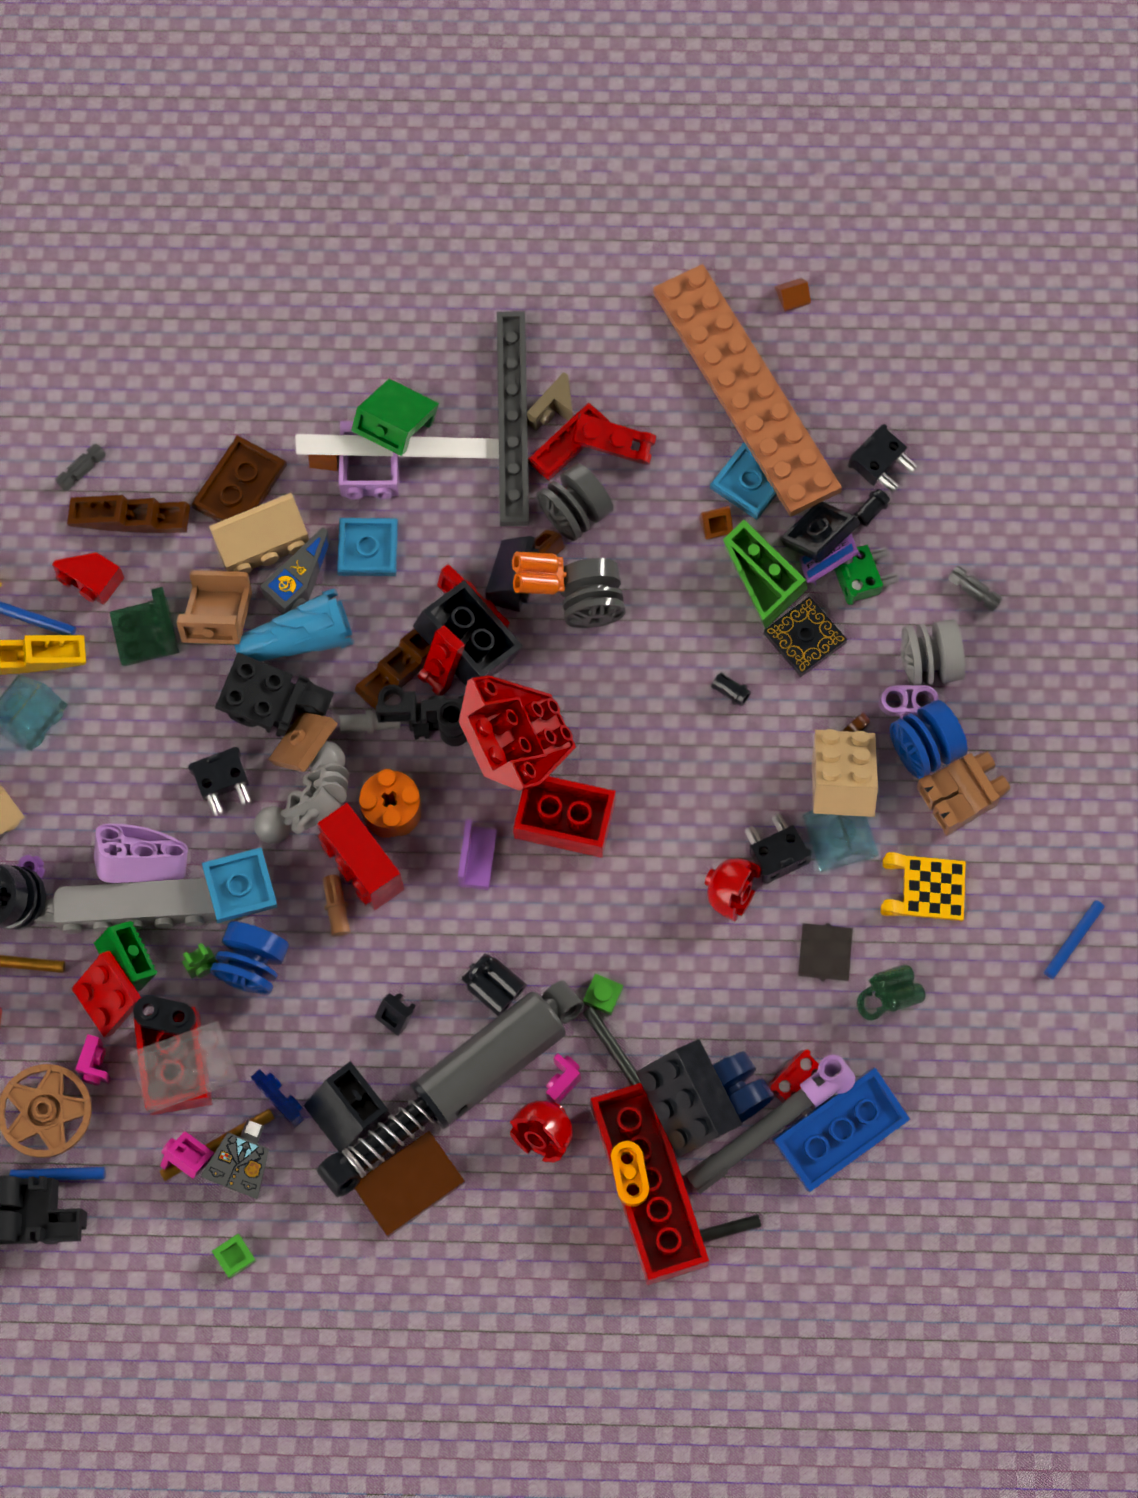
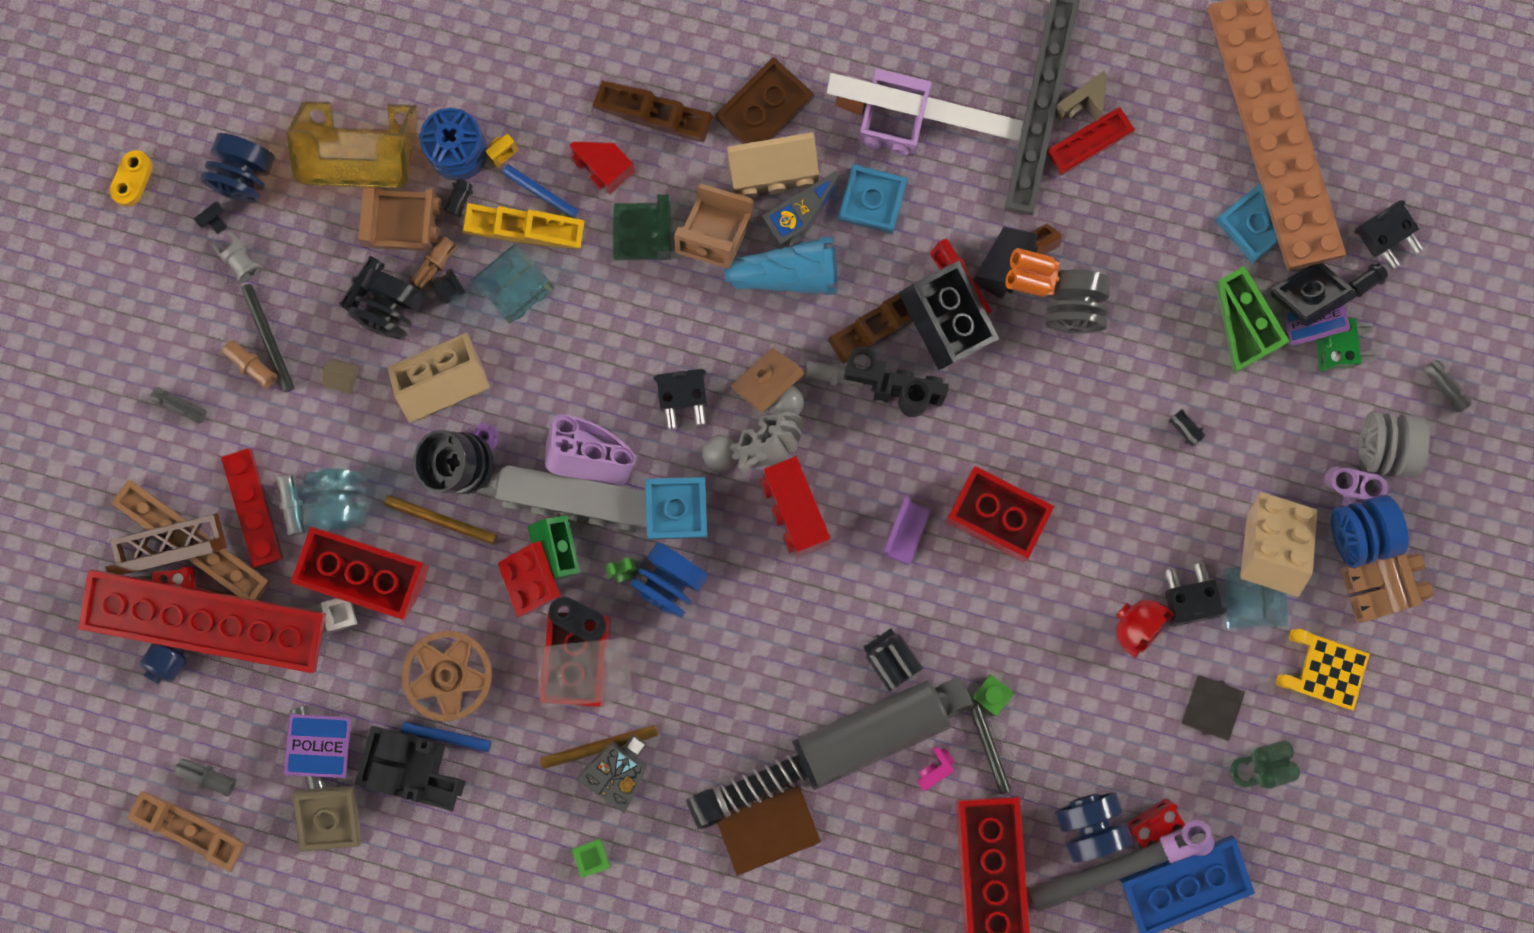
camera: 15 degrees right, 10 degrees up
(80, 467) = (617, 52): dark grey axle -> none
(90, 1056) = (501, 634): dark pink bracket -> none
(186, 1154) = (568, 753): dark pink bracket -> none
(266, 697) = (743, 326): black plate -> none
(270, 1086) = (673, 729): clear blue plate -> none
(336, 906) = (762, 545): medium nougat axle -> none
(346, 1107) = (727, 746): black slope -> none
(390, 820) = (837, 444): orange brick -> none
(393, 416) = (929, 76): green panel -> none
(394, 1013) = (792, 665): black tile -> none
(442, 661) = (918, 334): red plate -> none
(514, 731) = (972, 427): red wedge -> none
(543, 1129) = (907, 814): red cylinder -> none
(575, 501) = (1083, 205): dark grey wheel -> none
(613, 439) = (1134, 149): red plate -> none
(629, 1174) = (979, 886): light orange plate -> none
(688, 1098) = (1053, 829): black brick -> none
(716, 522) = (1213, 258): dark orange slope -> none
(793, 294) = (1345, 43): dark orange slope -> none
(805, 636) = (1271, 392): black plate -> none
(858, 723) = (1300, 494): reddish brown tile -> none
(1074, 939) = (1454, 756): blue bar -> none

